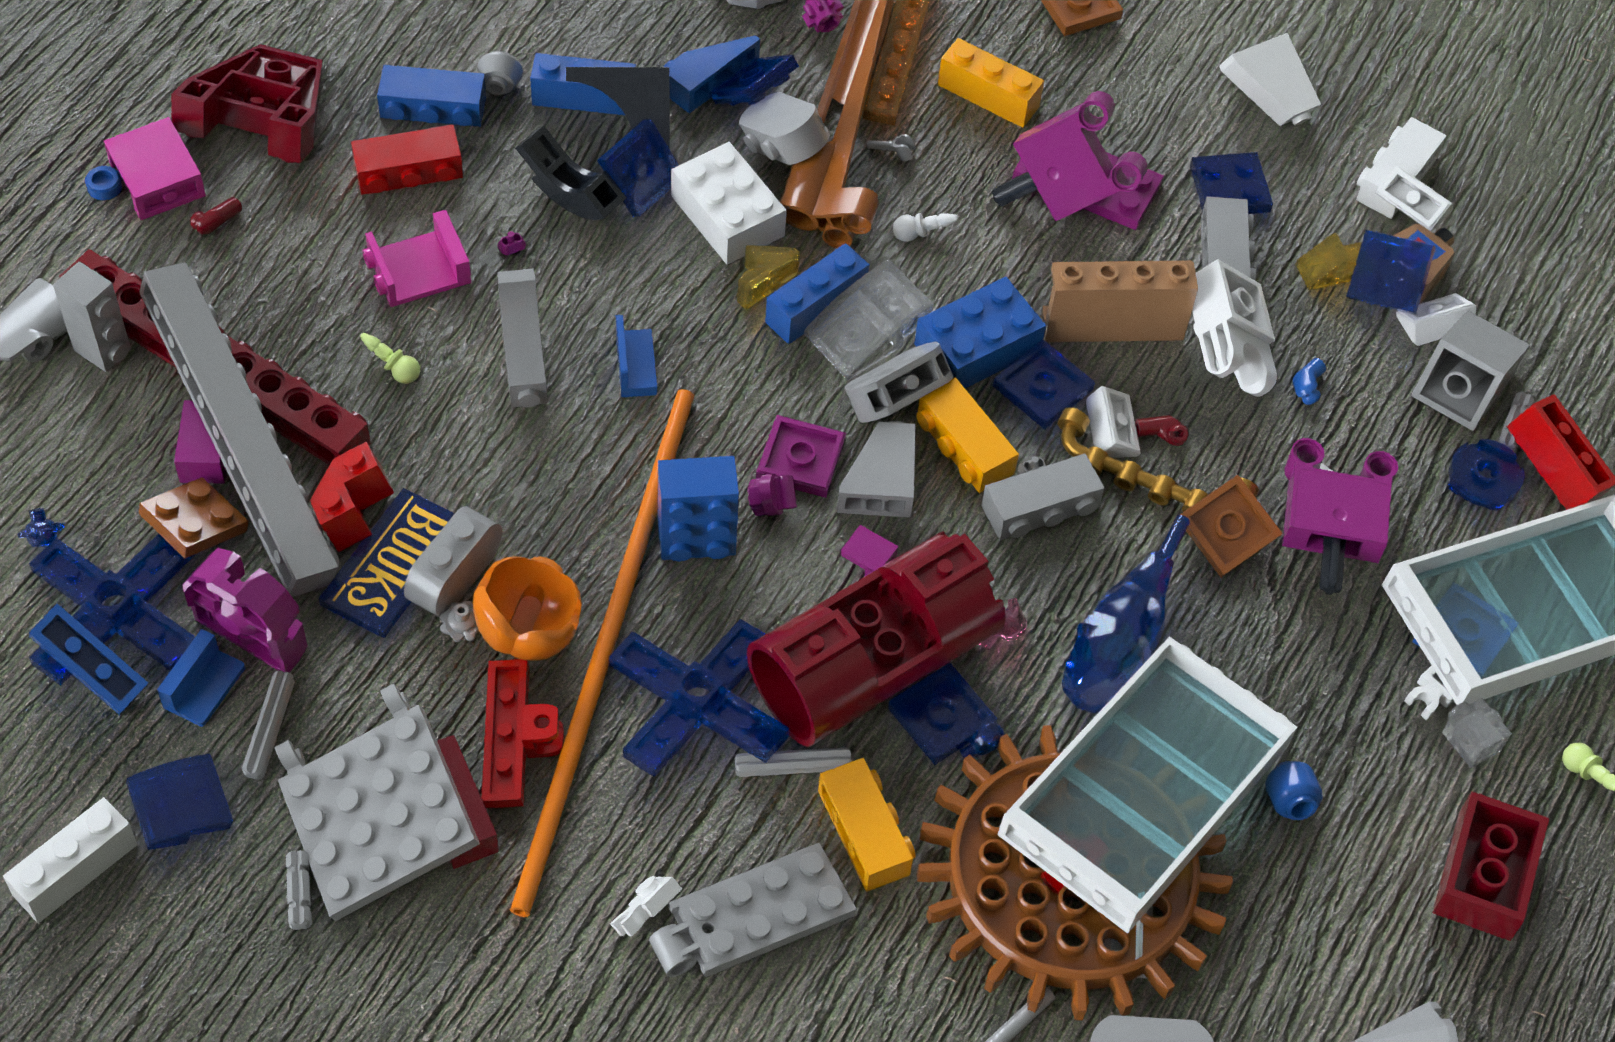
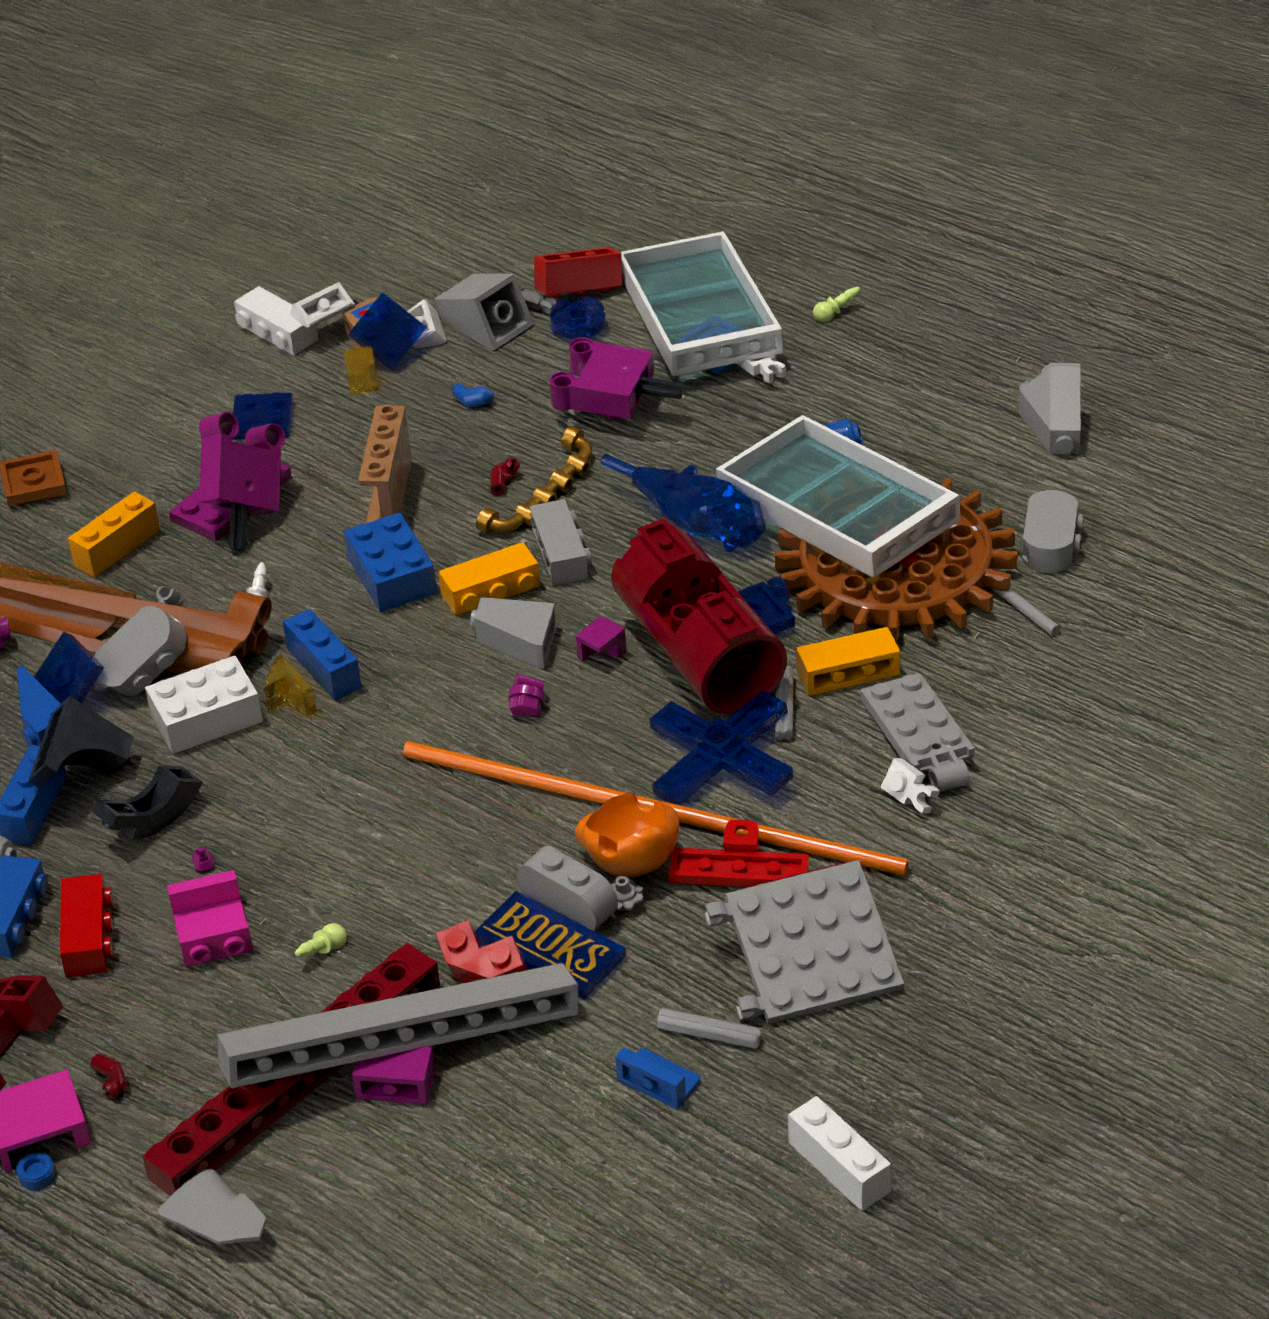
camera: 75 degrees left, 15 degrees down
(40, 529) = (473, 1194): clear blue plant -> none
(88, 659) = (642, 1129): blue brick -> none
(92, 316) = (244, 1133): light grey brick -> none
(131, 617) = (581, 1150): clear blue piece -> none
(179, 801) = (780, 1084): clear blue slope -> none
(193, 517) = (481, 1076): dark orange plate -> none
(249, 608) = (594, 1013): magenta connector -> none
(298, 890) = (875, 1006): light grey axle -> none
(522, 338) = (339, 840): light grey arch -> none
(635, 361) = (361, 779): blue panel -> none
(640, 167) = (148, 749): clear blue plate -> none
(697, 507) = (552, 717): blue brick -> none
(802, 451) = (483, 683): magenta tile -> none
(868, 320) = (359, 622): clear slope -> none
(898, 382) = (434, 605): light grey brick -> none
(1043, 384) = (448, 533): clear blue plate -> none
(1113, 423) = (503, 502): white slope -> none
(1226, 234) = (330, 420): light grey brick -> none
(1230, 526) = (608, 437): dark orange plate -> none
(1234, 327) = (430, 415): white brick -> none
(1274, 80) = (166, 370): white slope -> none
(1476, 731) = (805, 346): clear brick -> none
(1491, 866) = (913, 352): dark red brick -> none

